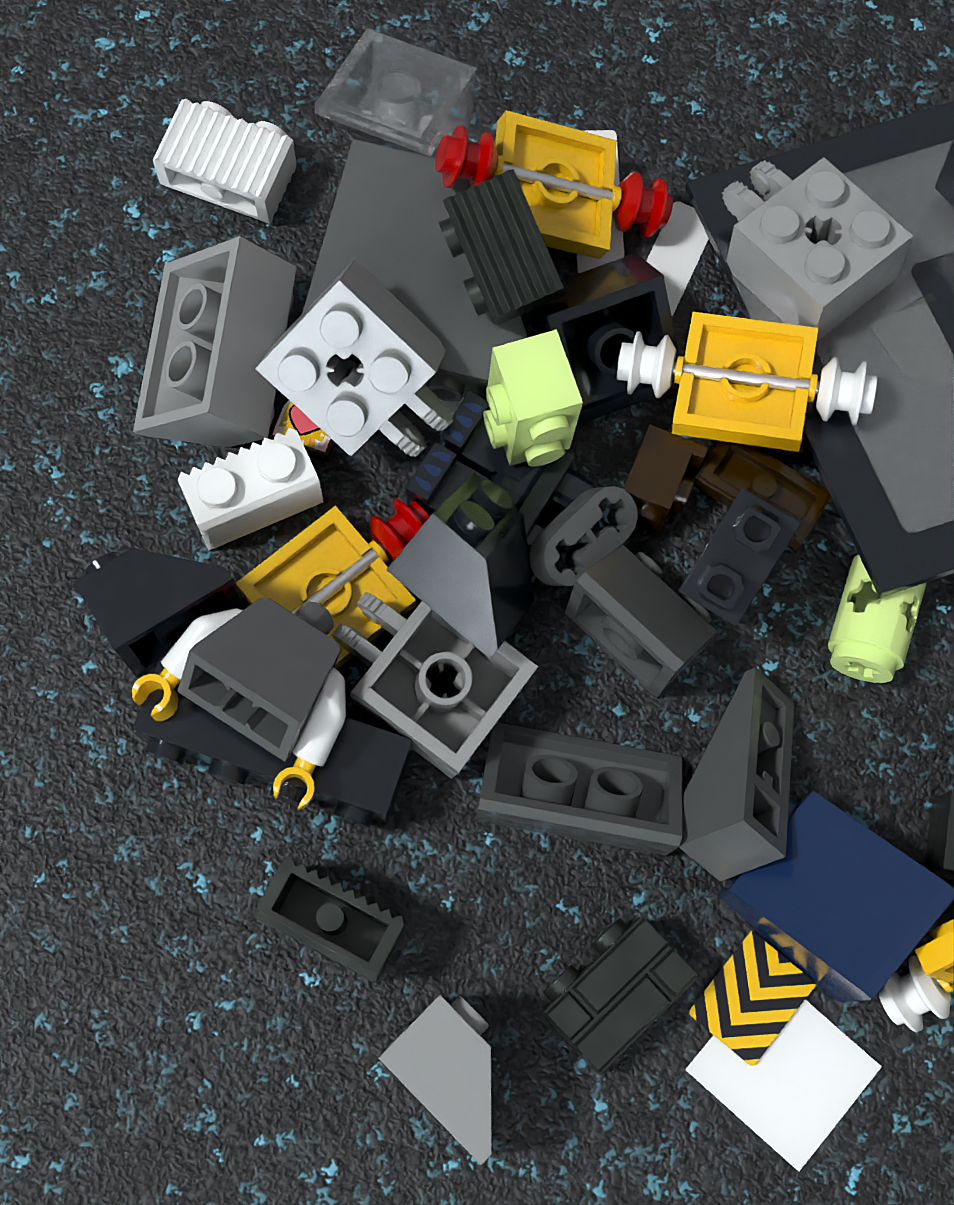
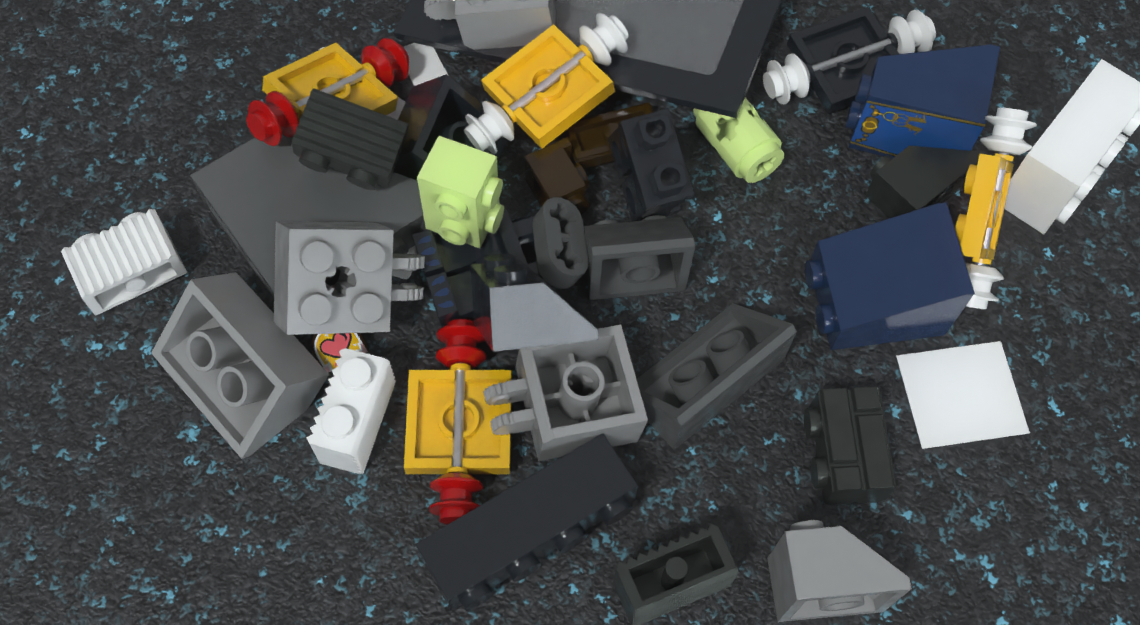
camera: 45 degrees left, 10 degrees down
(151, 600) = (375, 522): black slope -> none
(263, 677) = (491, 483): dark grey torso -> none
(400, 93) = (190, 127): clear slope -> none
(742, 784) = (784, 277): dark grey slope -> none
(752, 998) = (908, 378): sticker -> none

